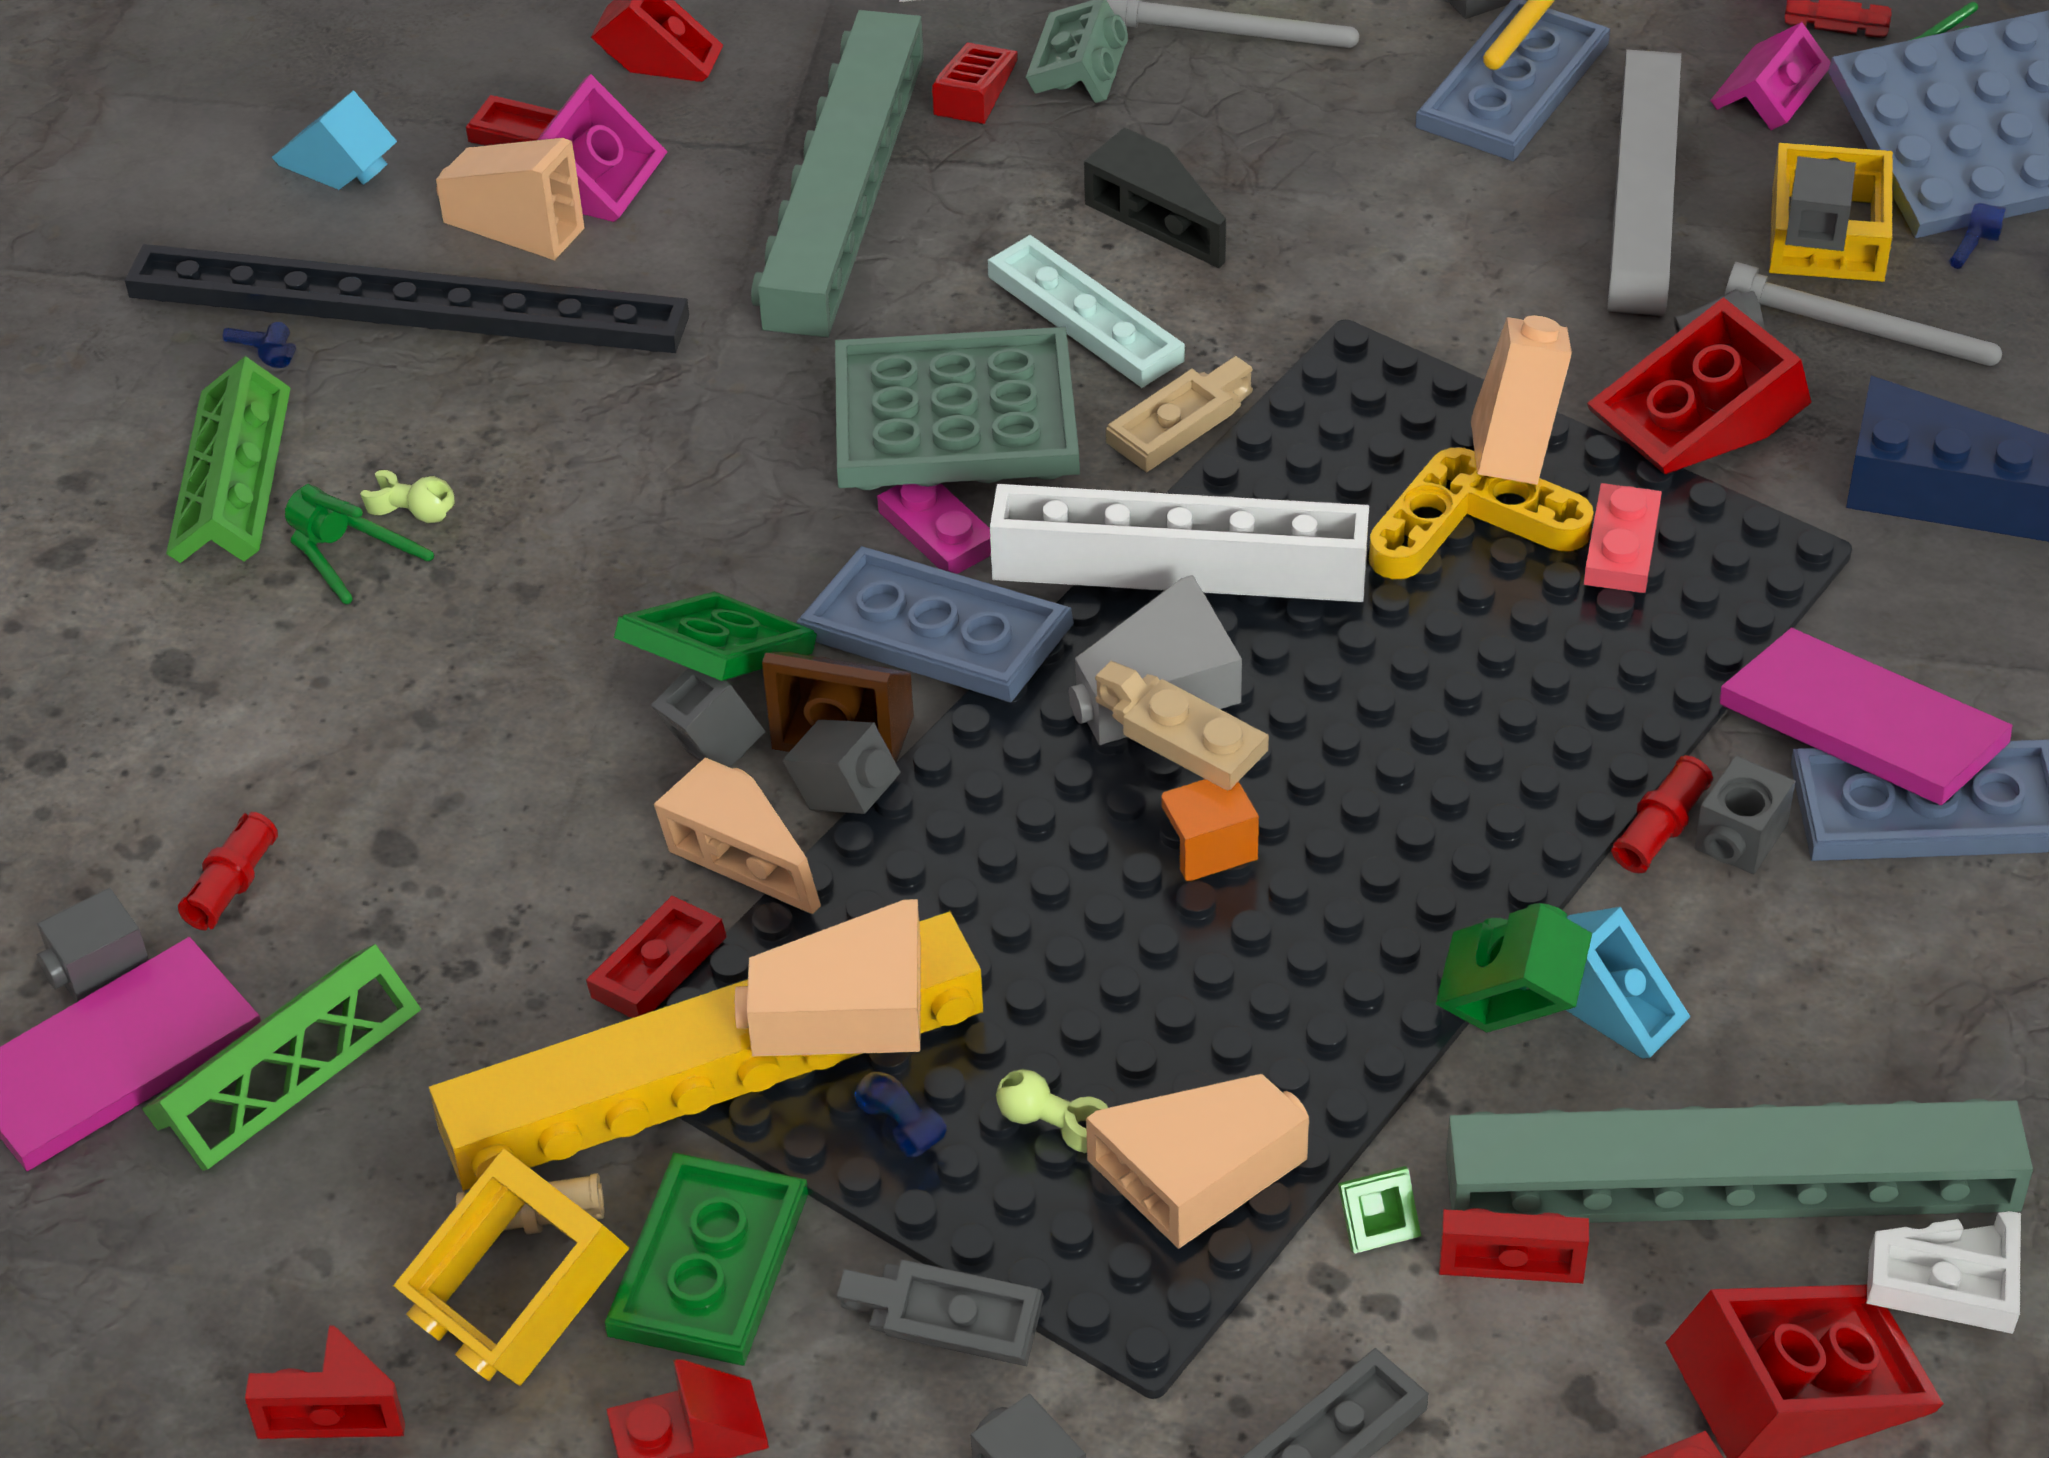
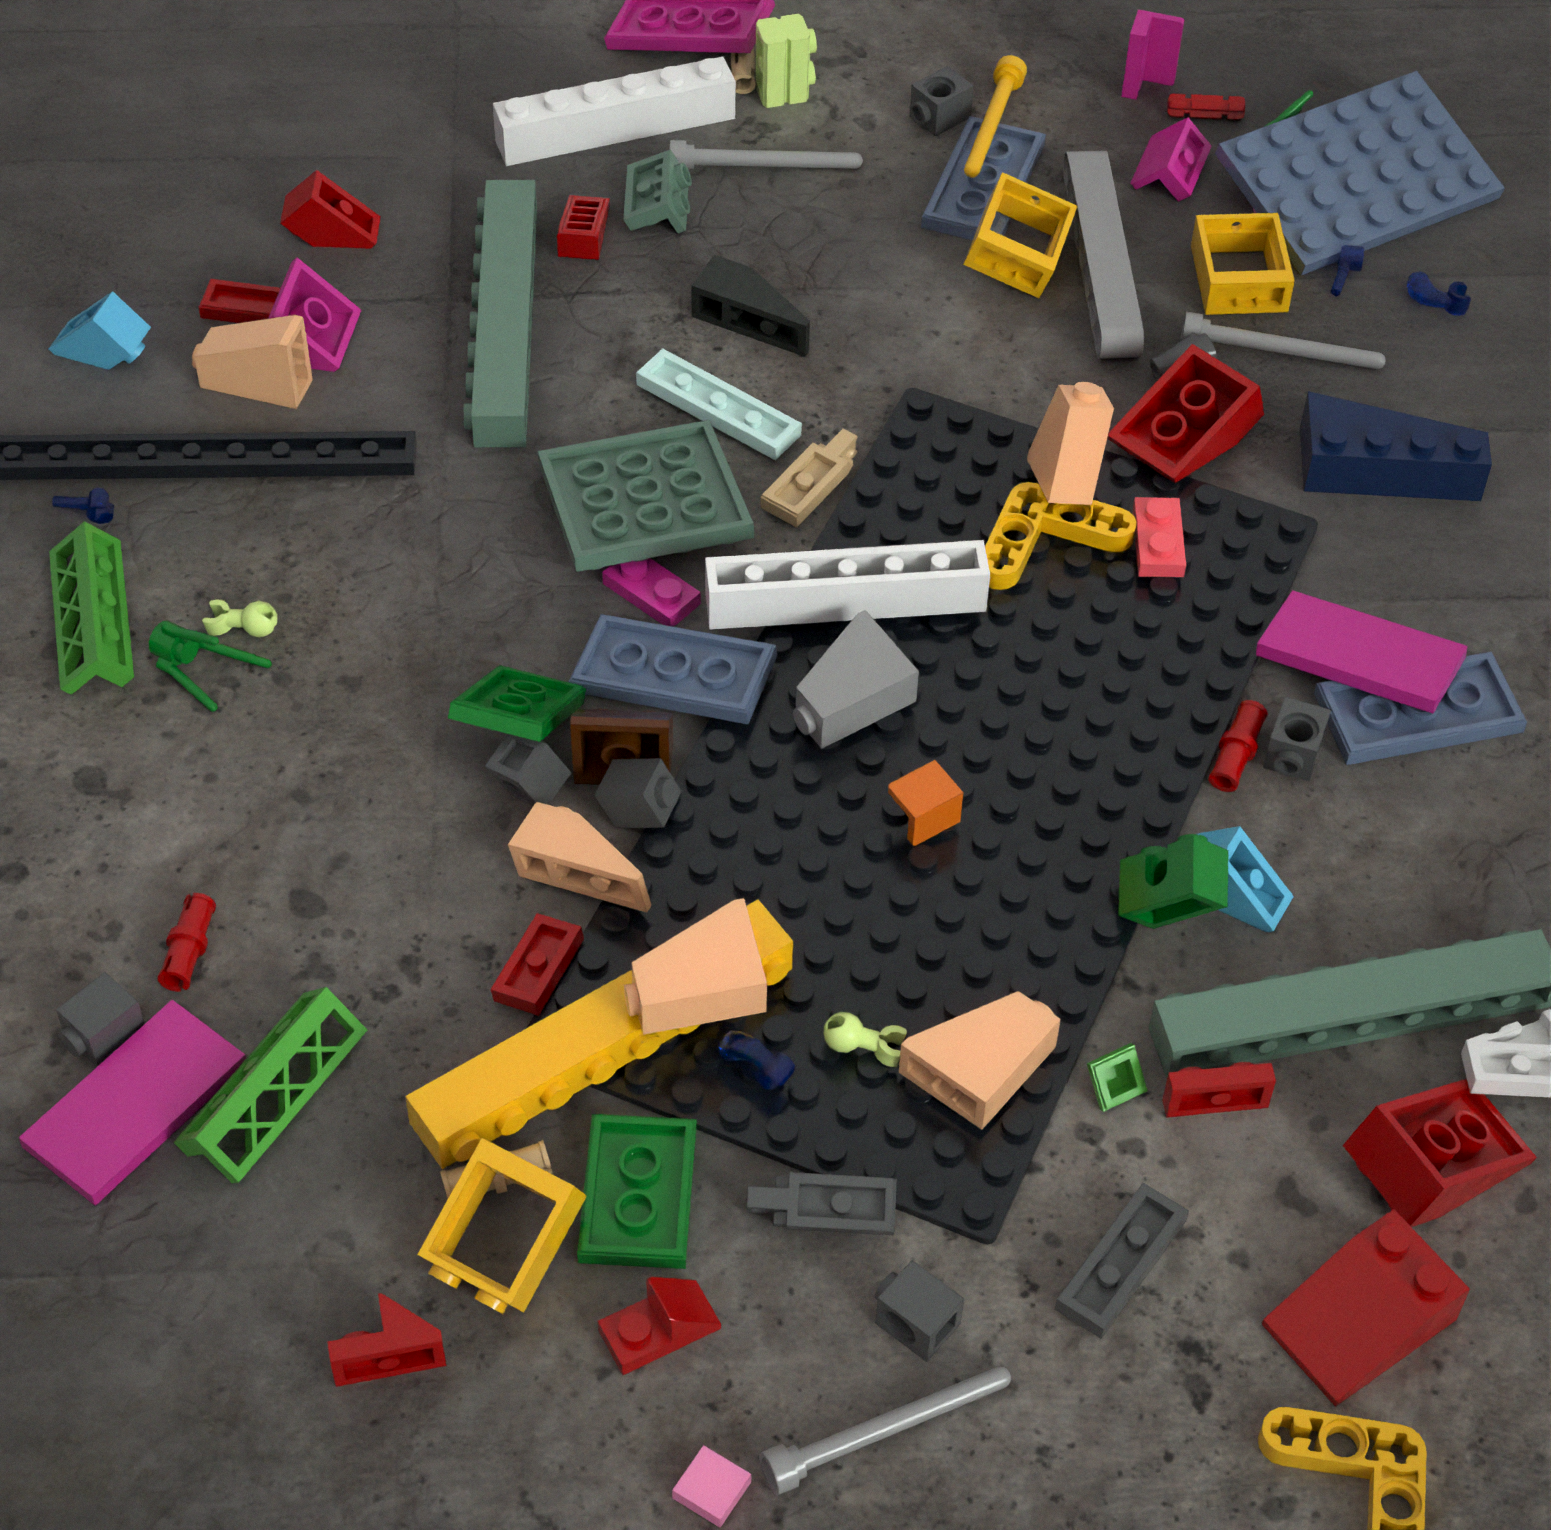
camera: 15 degrees left, 5 degrees up
(1180, 725) = (890, 730): tan hinge -> none
(1520, 177) = (1008, 259): none -> yellow window
(1820, 203) = (1242, 261): dark grey brick -> none

